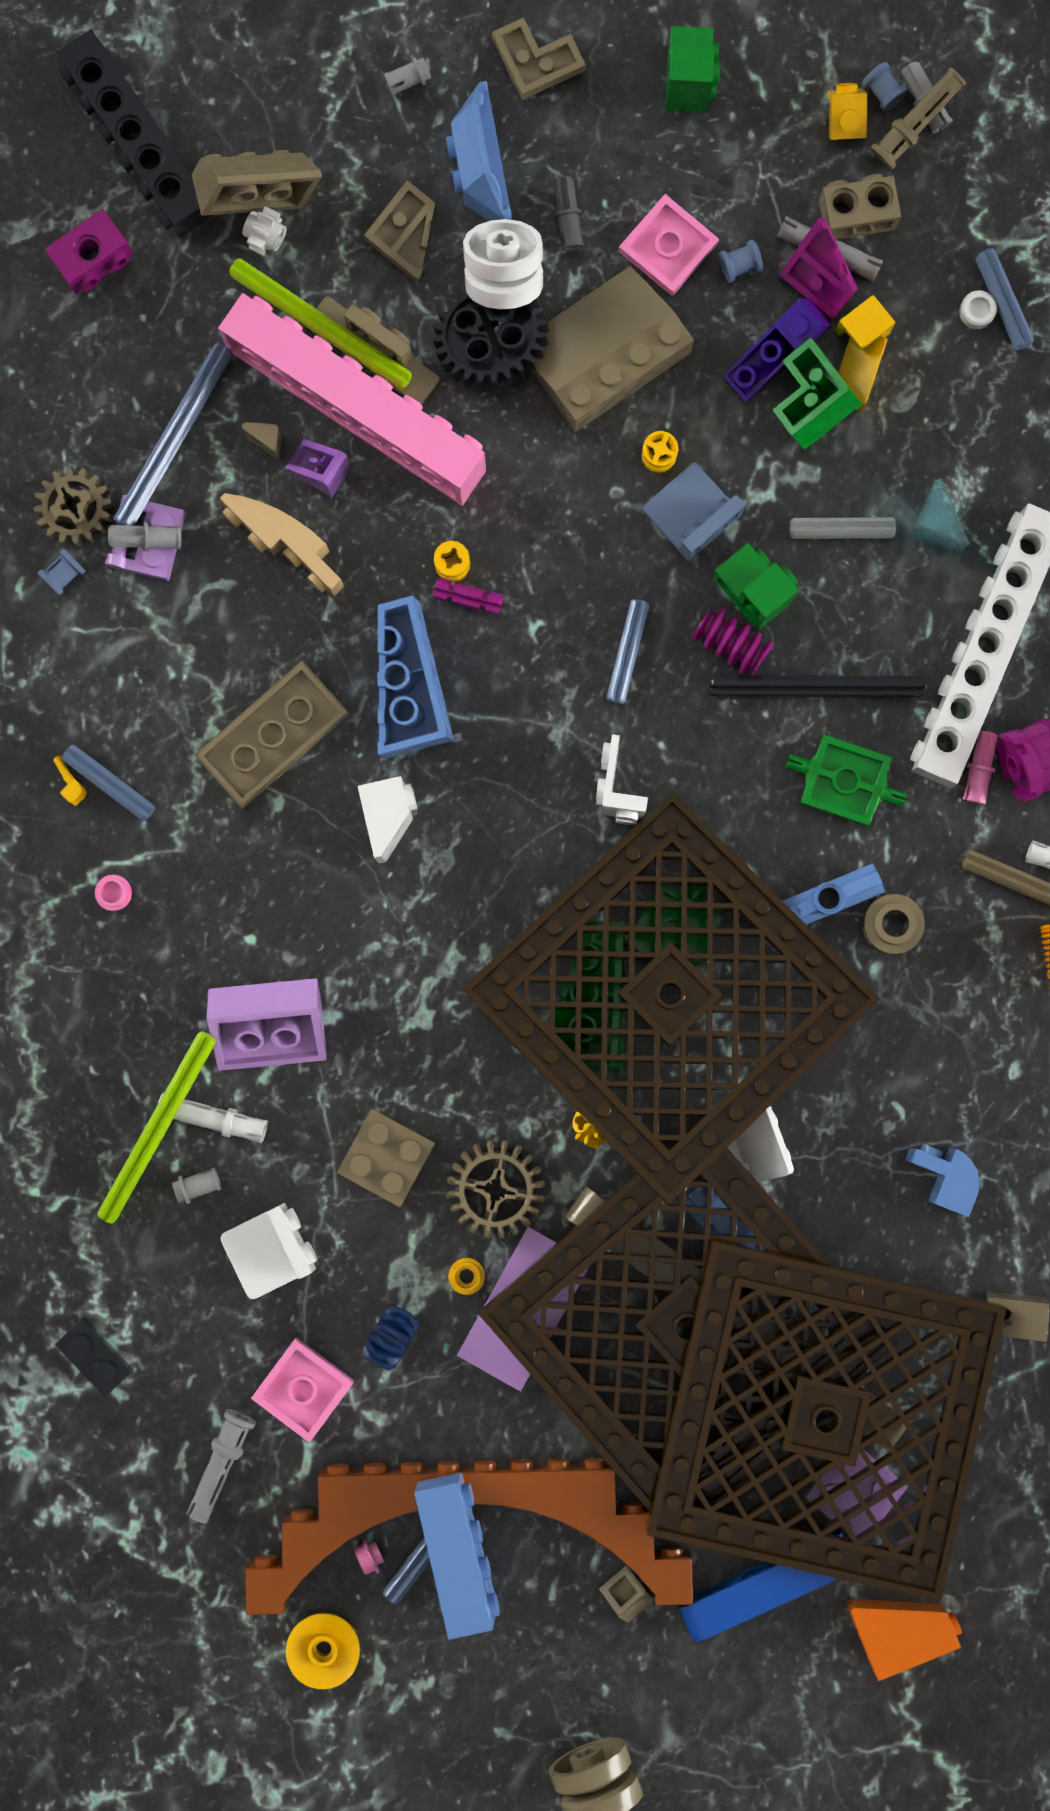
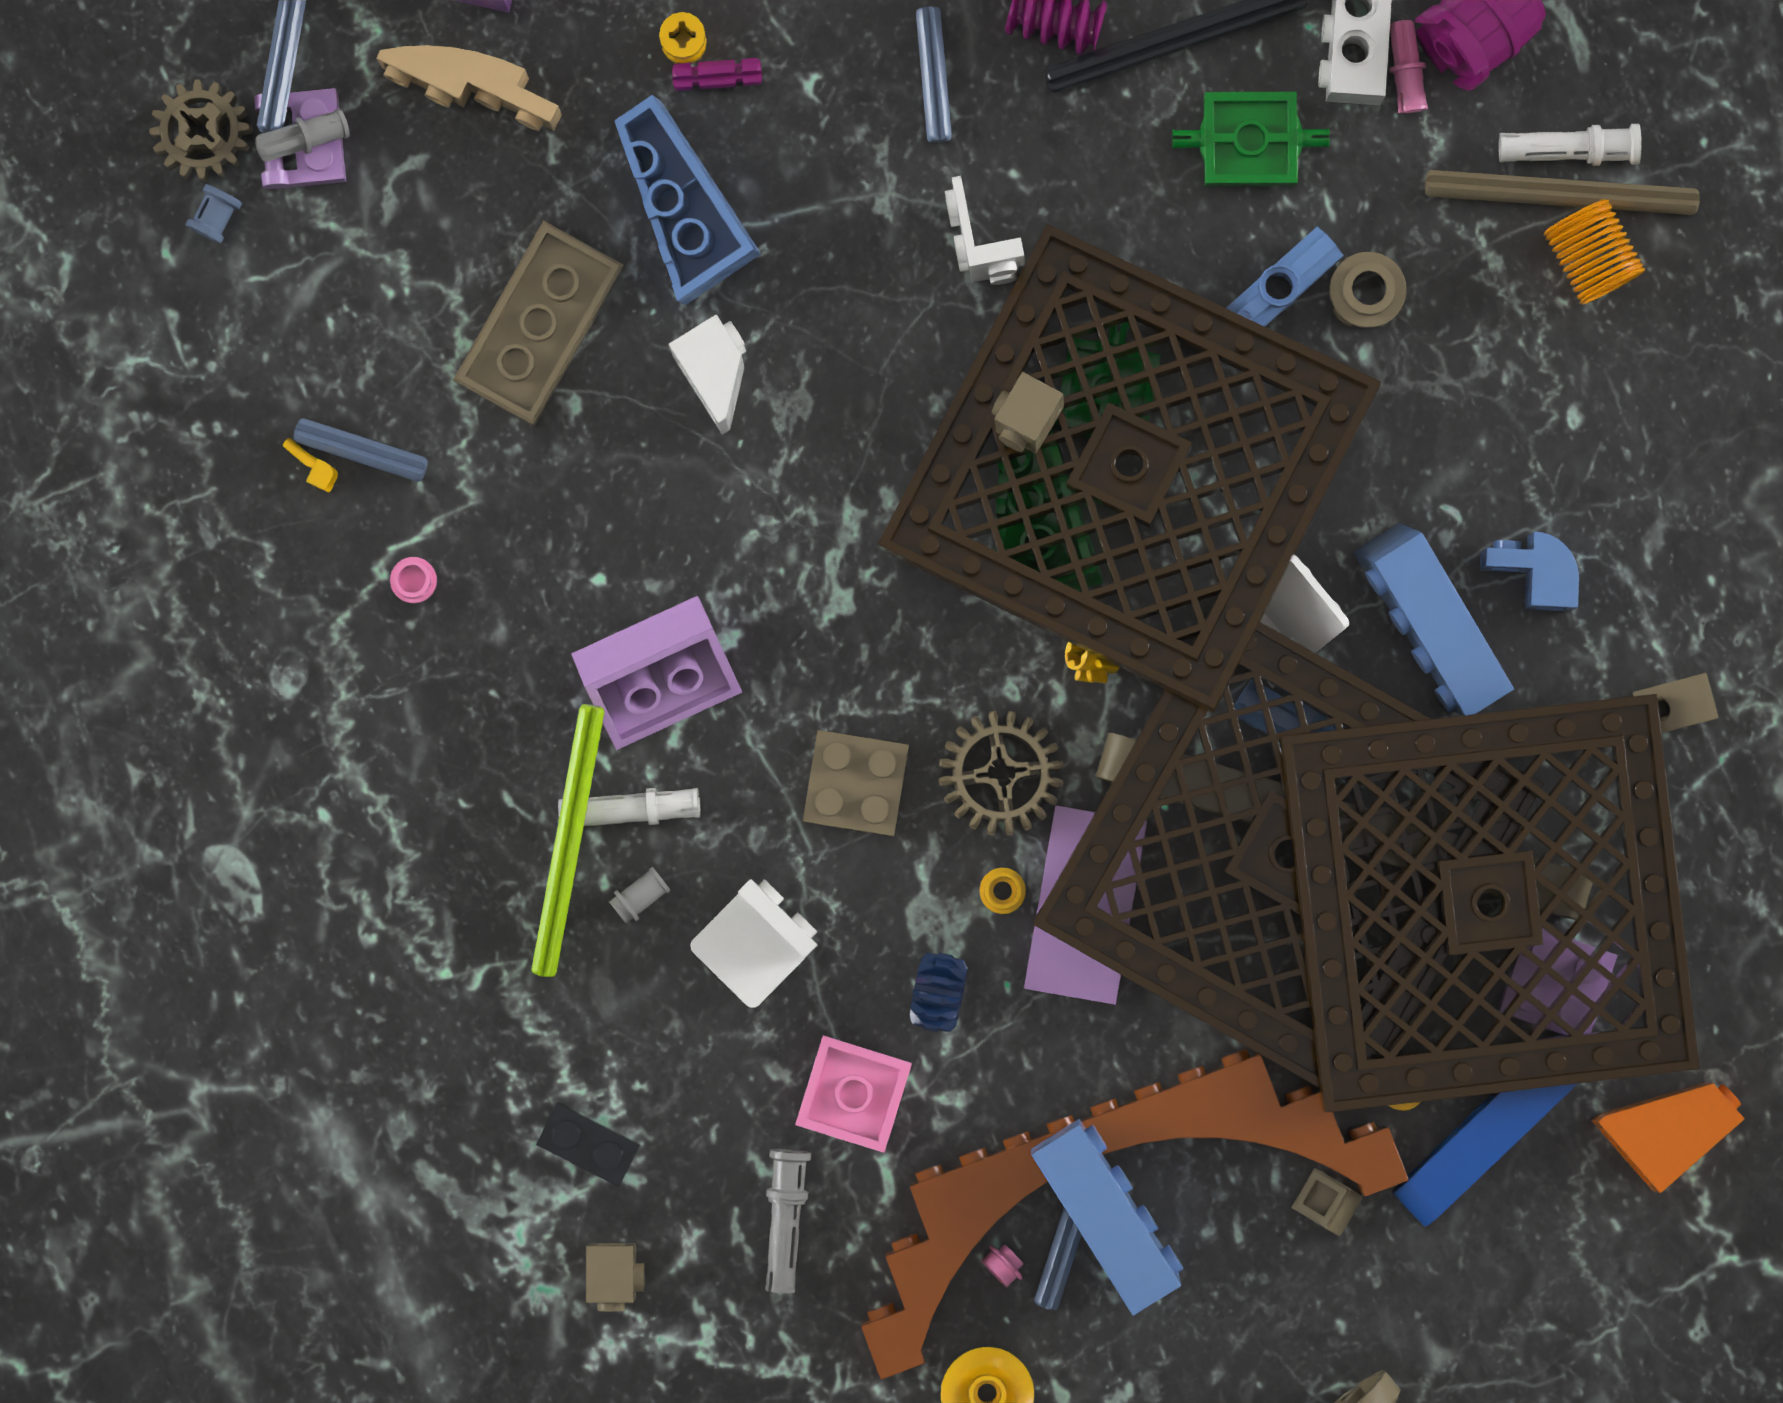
camera: 20 degrees left, 0 degrees up
(76, 1462) = (613, 1275): none -> dark tan brick
(606, 930) = (1027, 413): none -> dark tan brick
(858, 1187) = (1433, 619): none -> medium blue wedge

